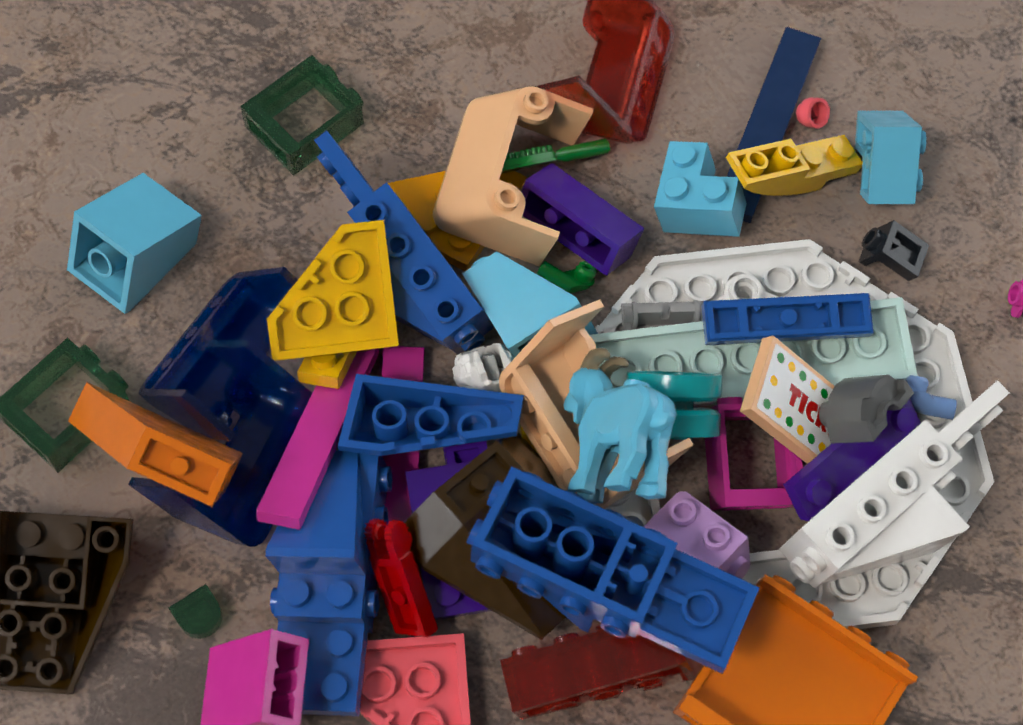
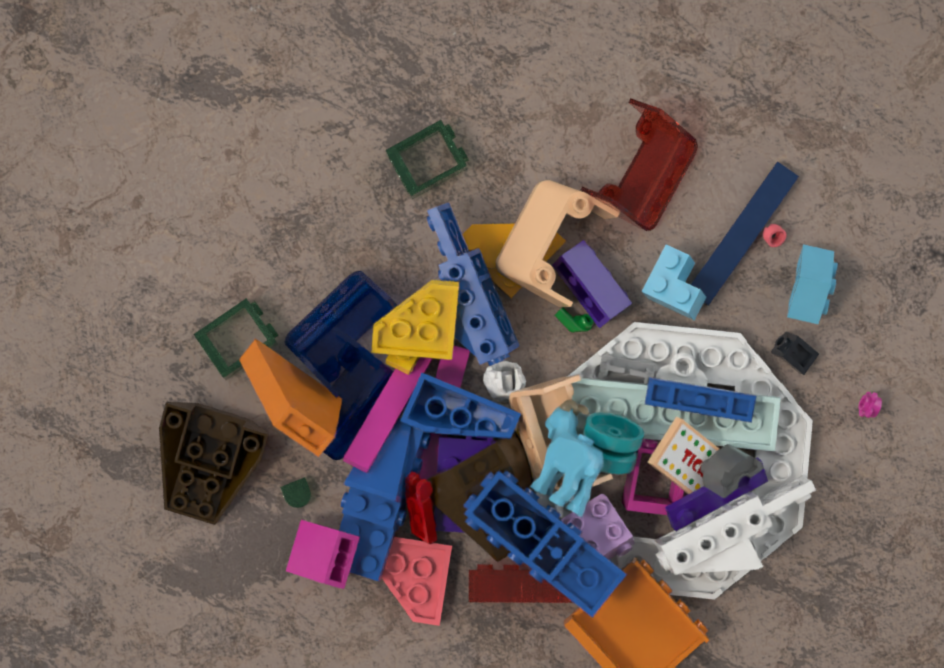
camera: 15 degrees right, 20 degrees up
(130, 240) = (297, 231): medium azure slope -> none
(517, 299) = (536, 350): medium azure slope -> none
(539, 156) = (574, 234): green piece -> none
(794, 169) = (745, 279): yellow slope -> none
(930, 404) = (776, 468): medium blue arm -> none

